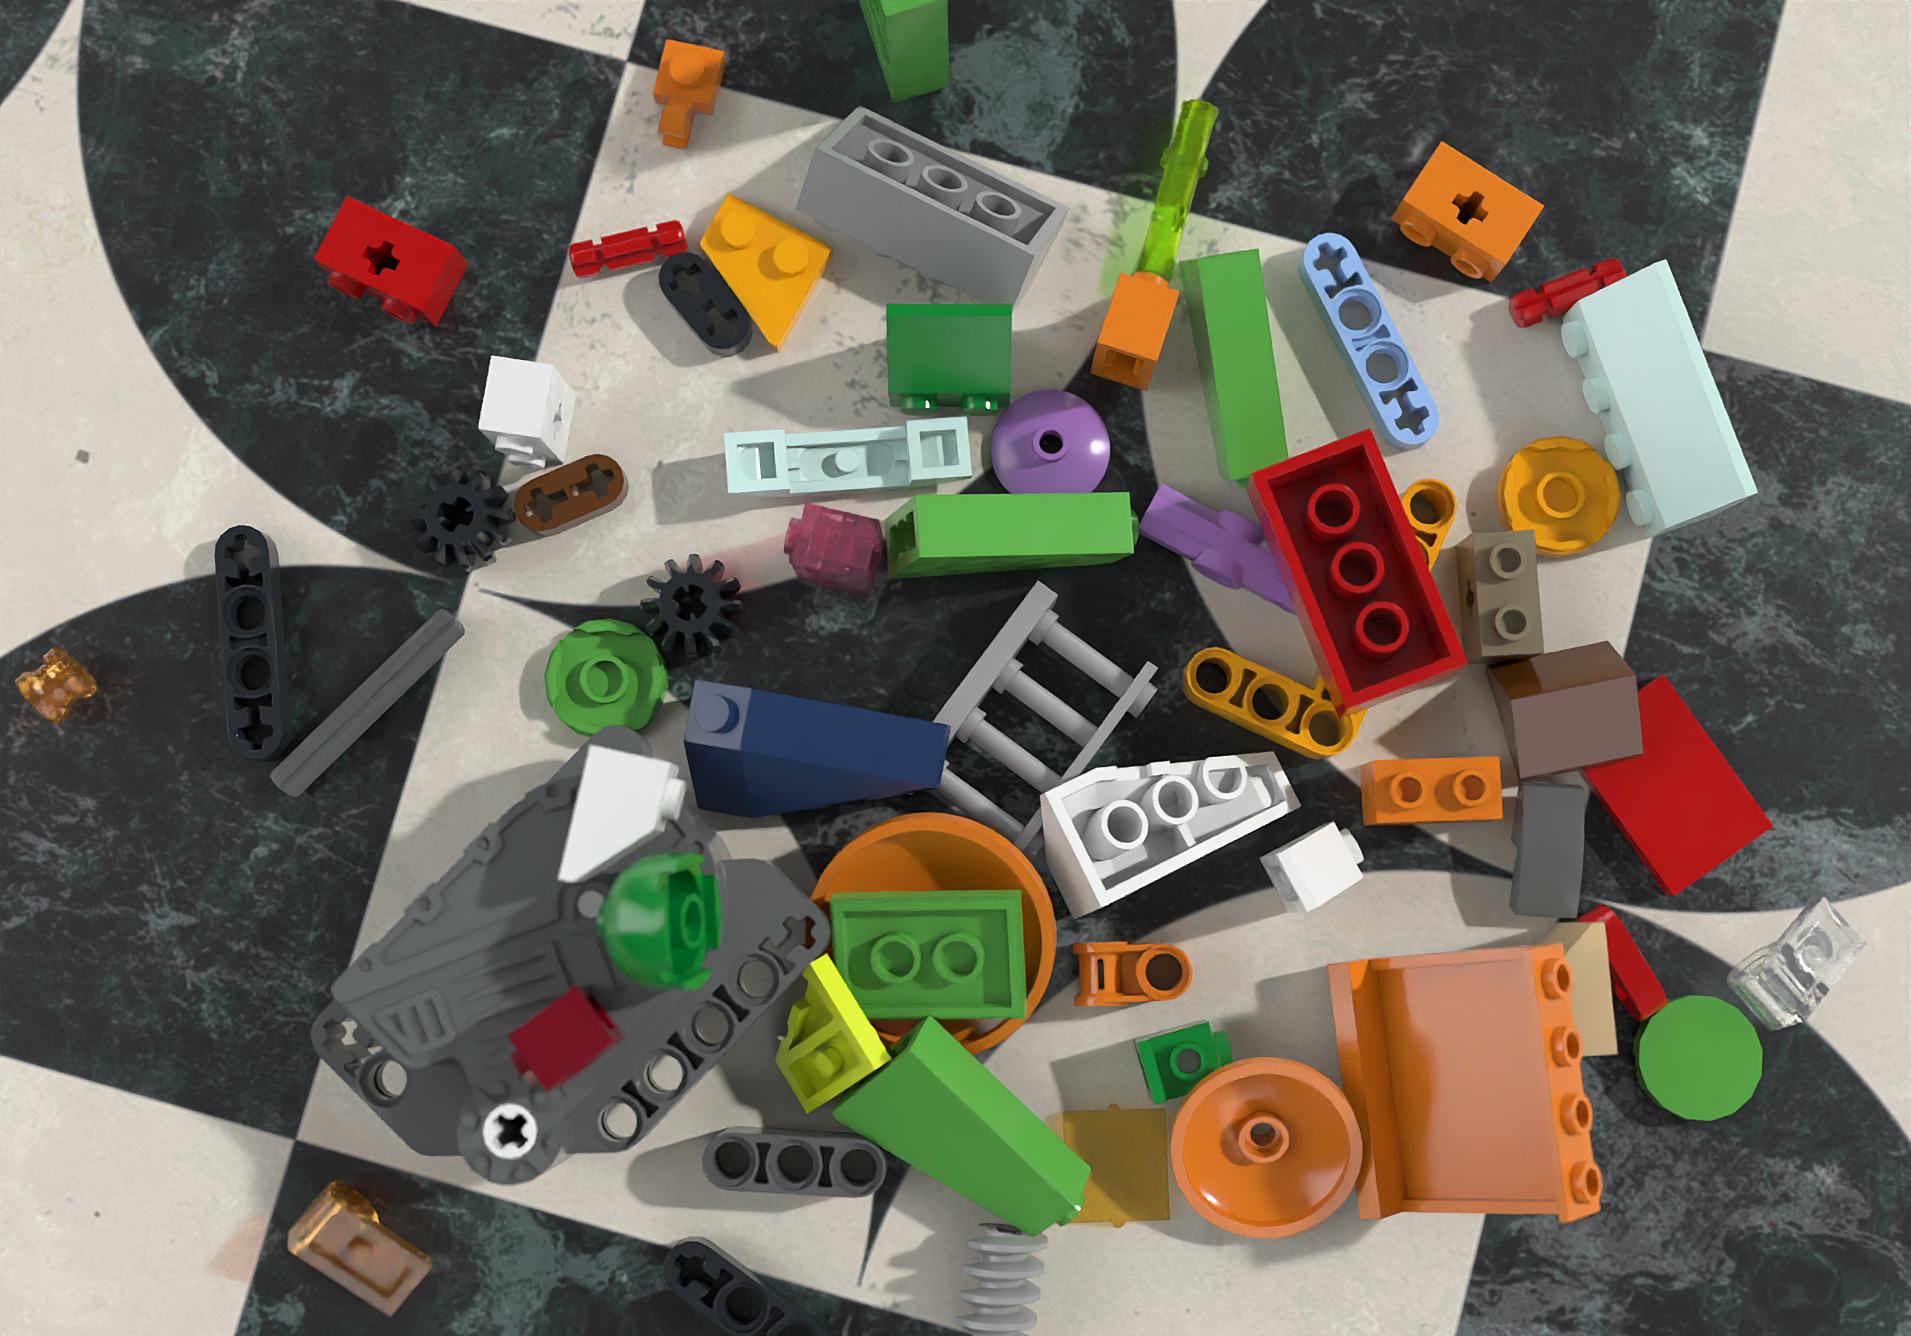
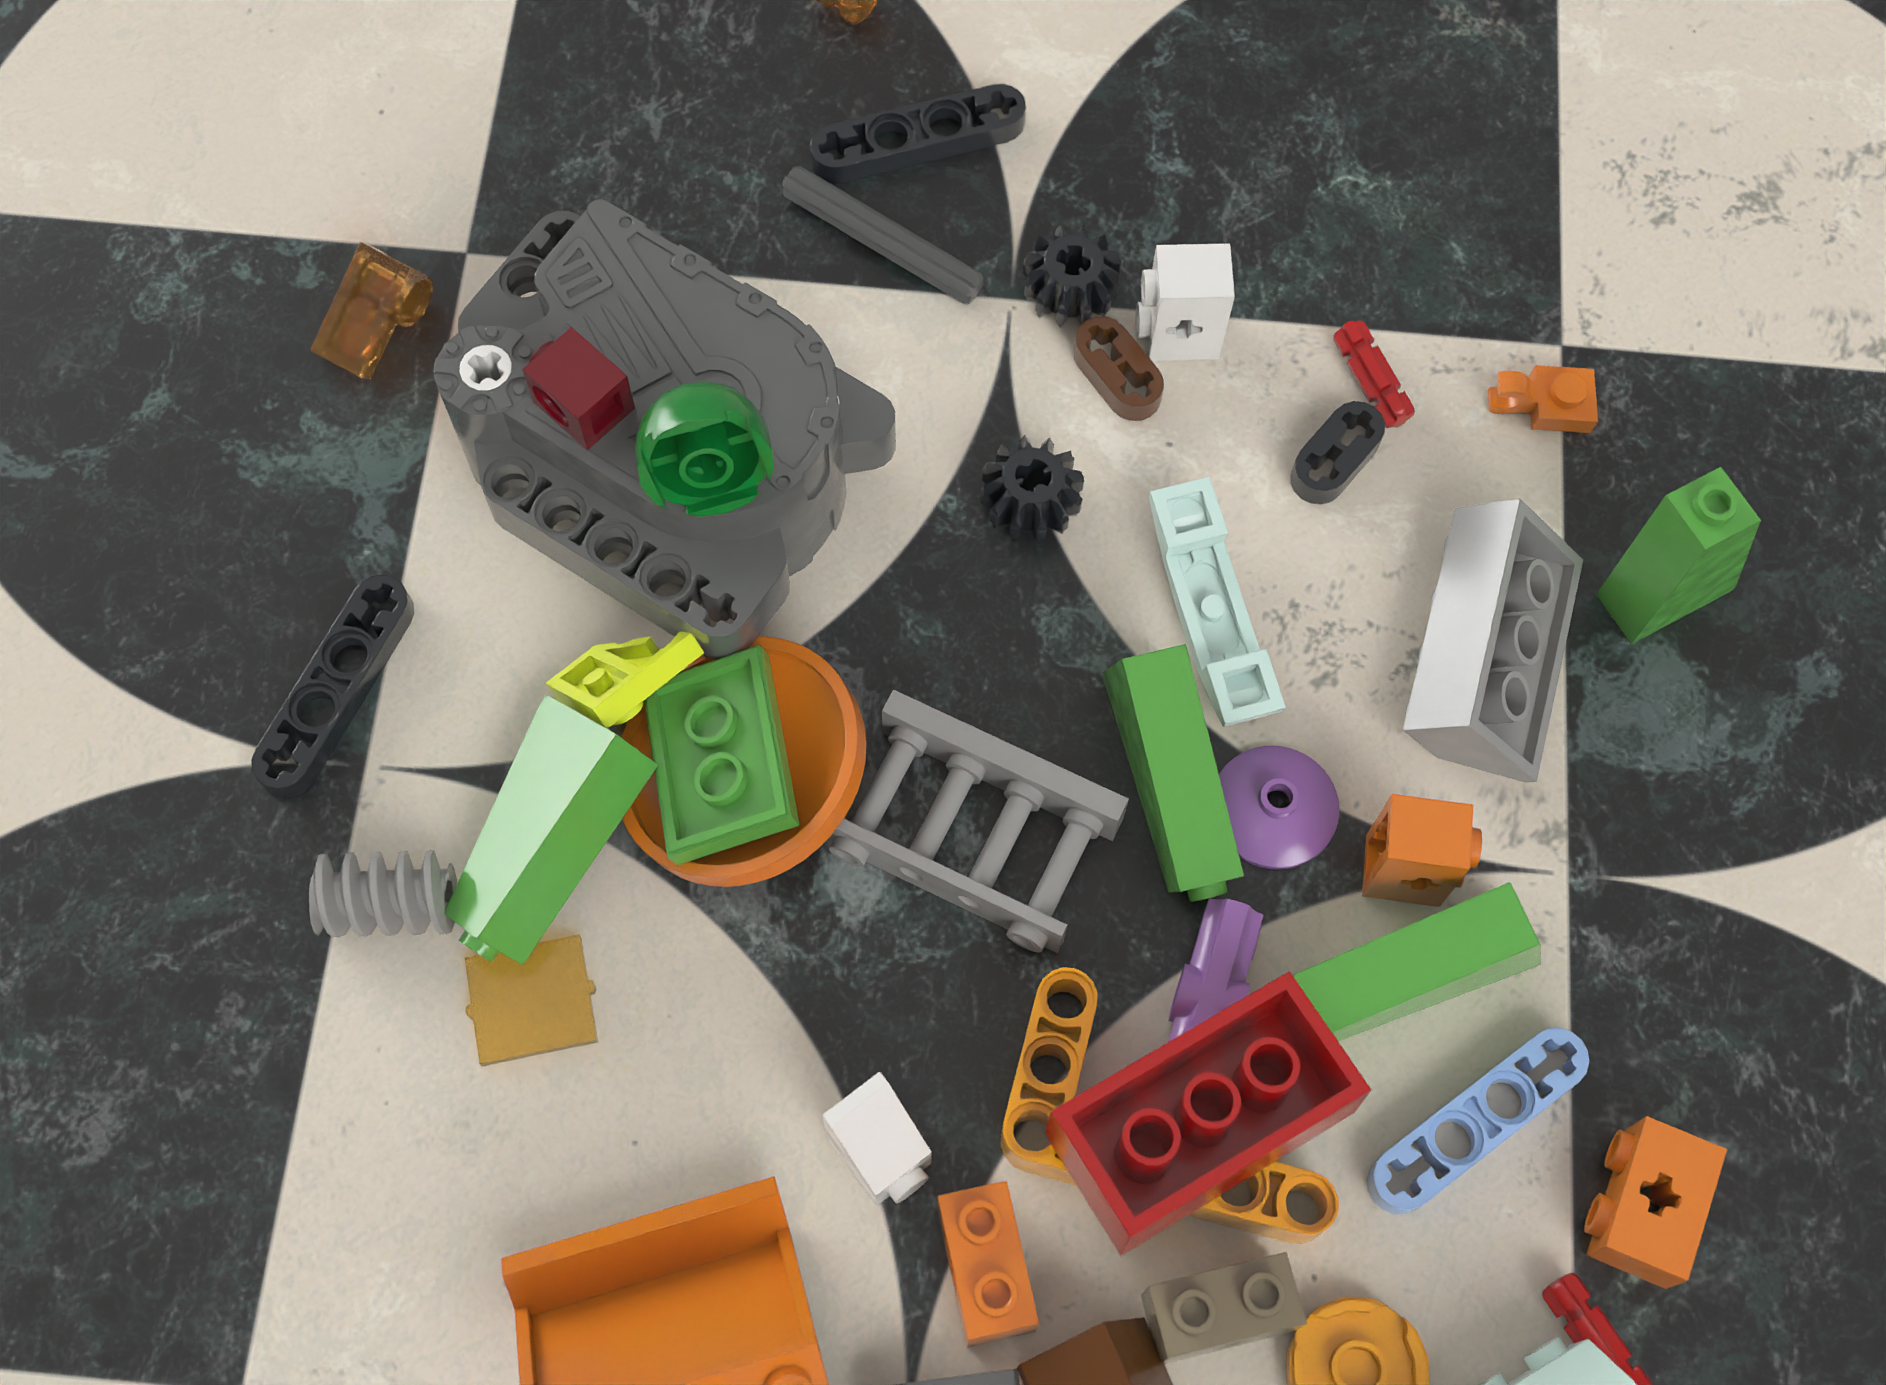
camera: 75 degrees right, 15 degrees down
(366, 239) = (1303, 174): red brick -> none
(606, 677) = (946, 431): bright green tile -> none
(618, 810) = (804, 393): white slope -> none
(765, 265) = (1390, 500): light orange wing -> none
(768, 1176) = (488, 651): dark grey beam -> none
(786, 753) = (901, 601): dark blue wedge -> none
(835, 549) = (1115, 598): clear pink brick -> none
(949, 357) = (1342, 675): green slope -> none
(1125, 973) = (734, 964): orange piece -> none
(1143, 822) = (893, 956): white wedge -> none
(1159, 1052) = (636, 1016): green brick -> none
(1183, 167) = (1611, 885): clear neon green pin -> none
(1272, 1180) = (533, 1129): orange dish -> none

